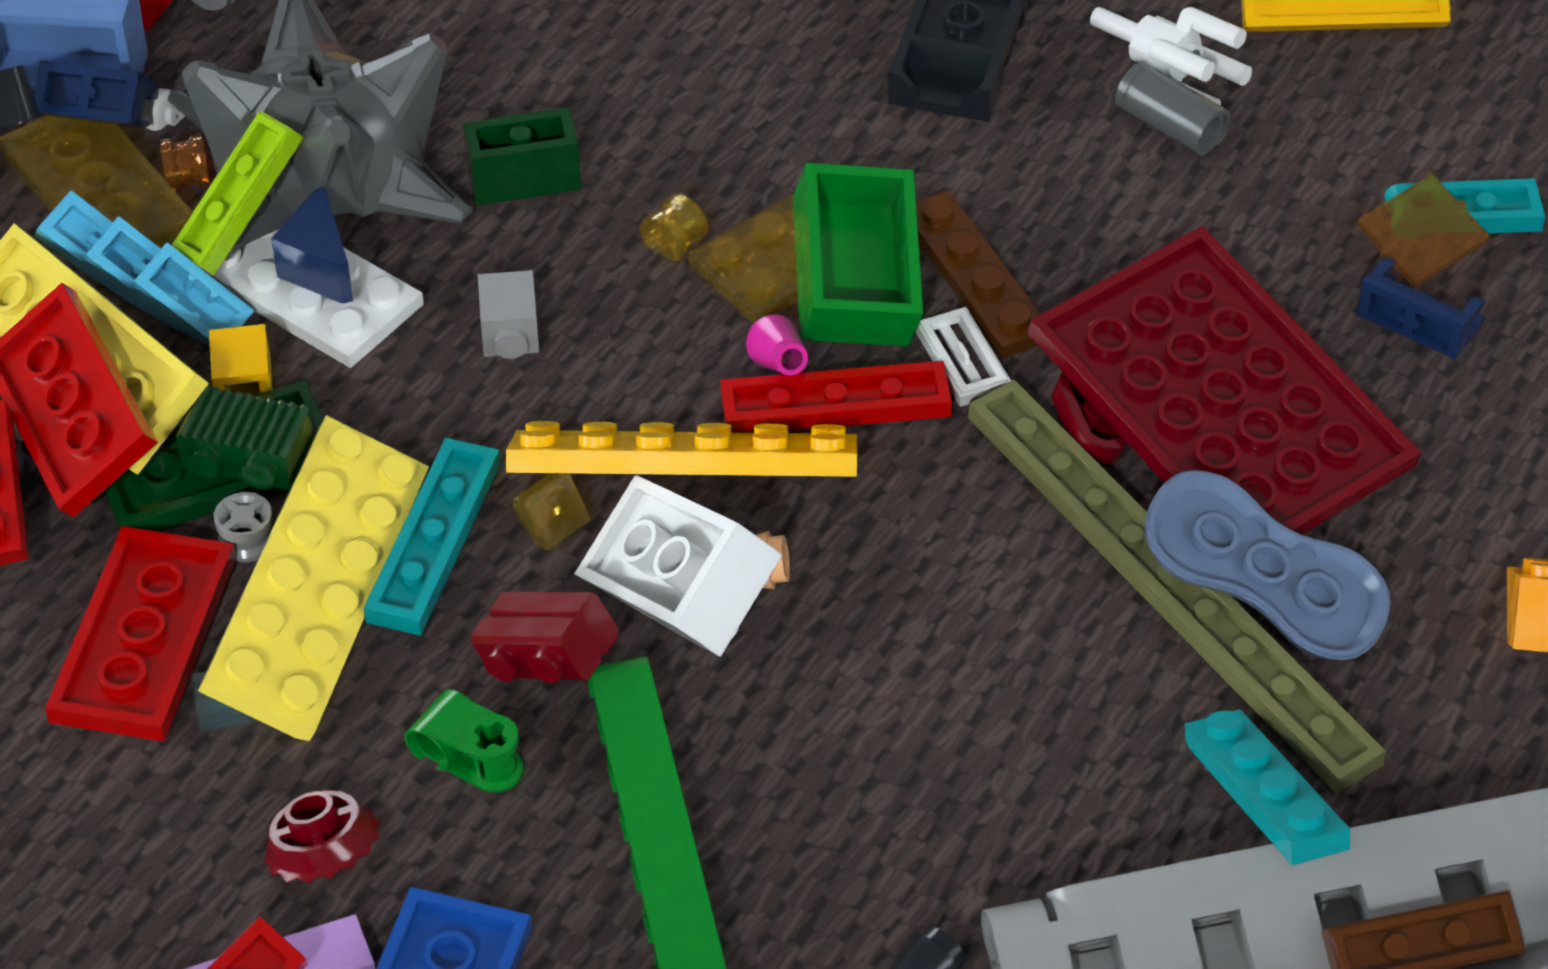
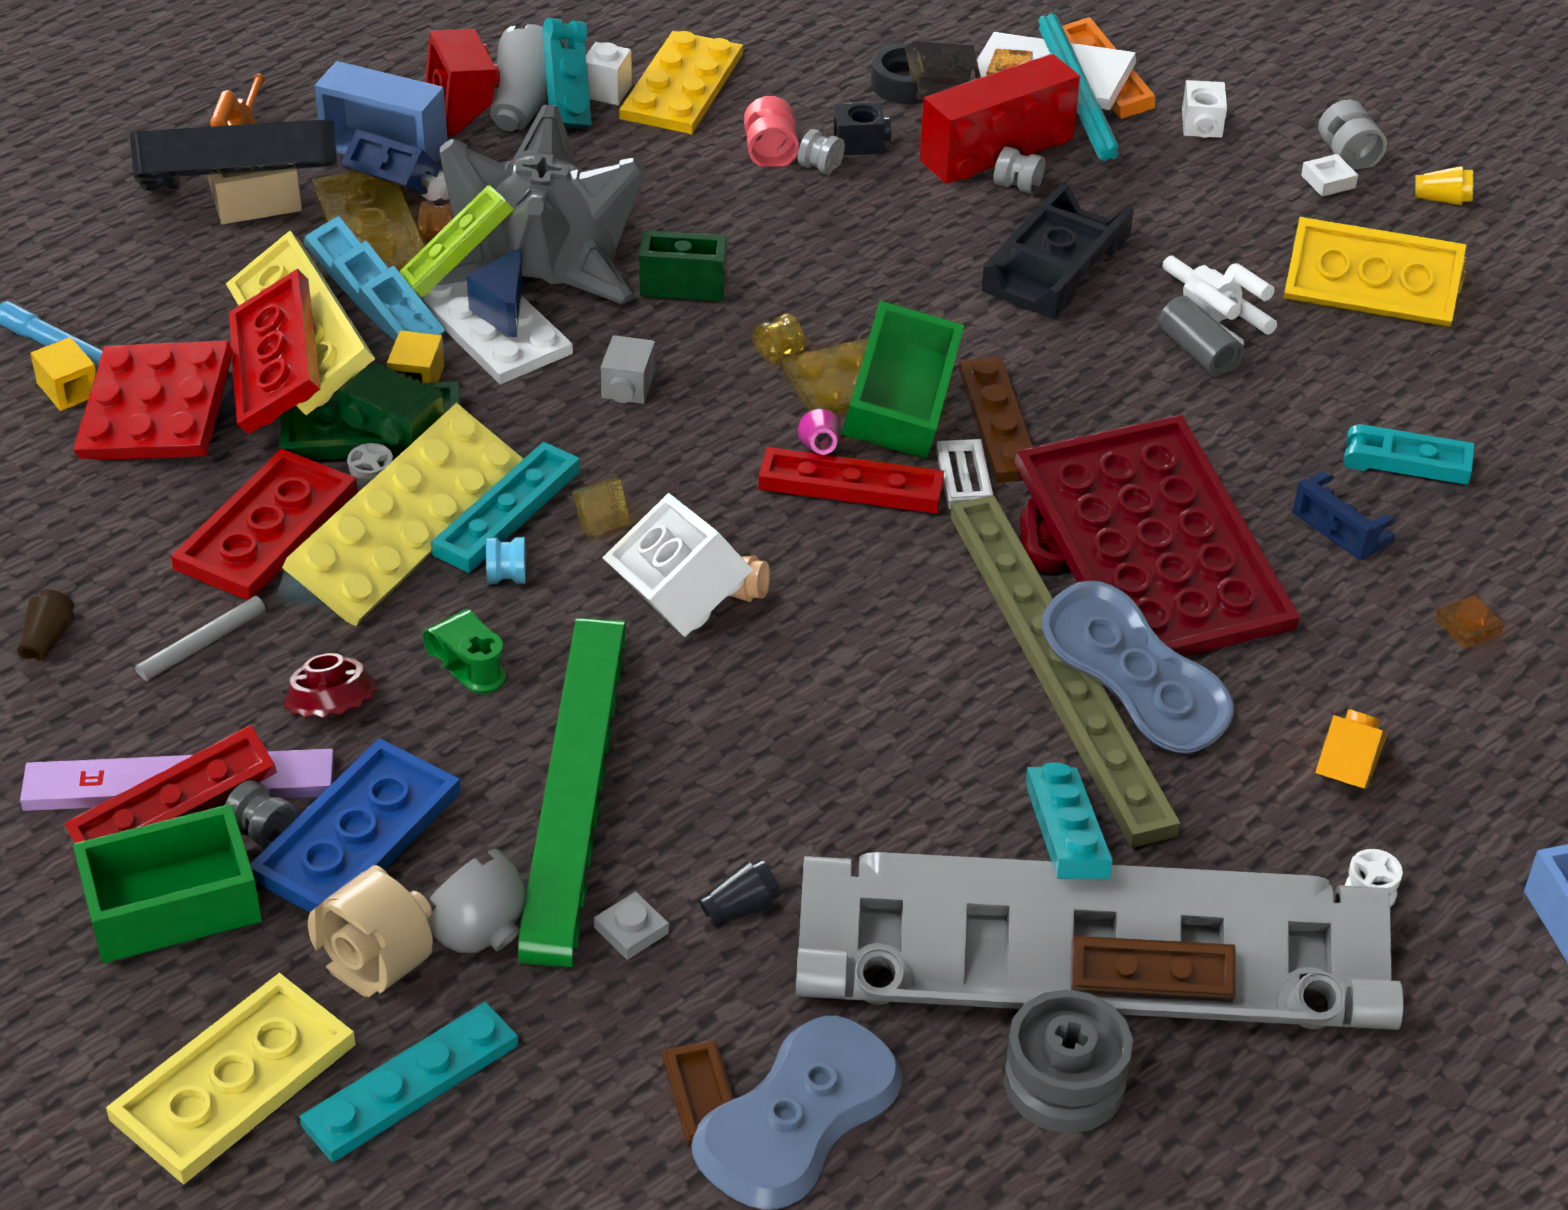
camera: 15 degrees right, 5 degrees down
(124, 808) = (200, 638): none -> light grey bar
(462, 607) = (506, 560): none -> medium azure wheel
(544, 636) = (553, 588): dark red brick -> none
(662, 451) = (701, 483): yellow plate -> none
(1423, 230) = (1366, 460): clear orange piece -> none

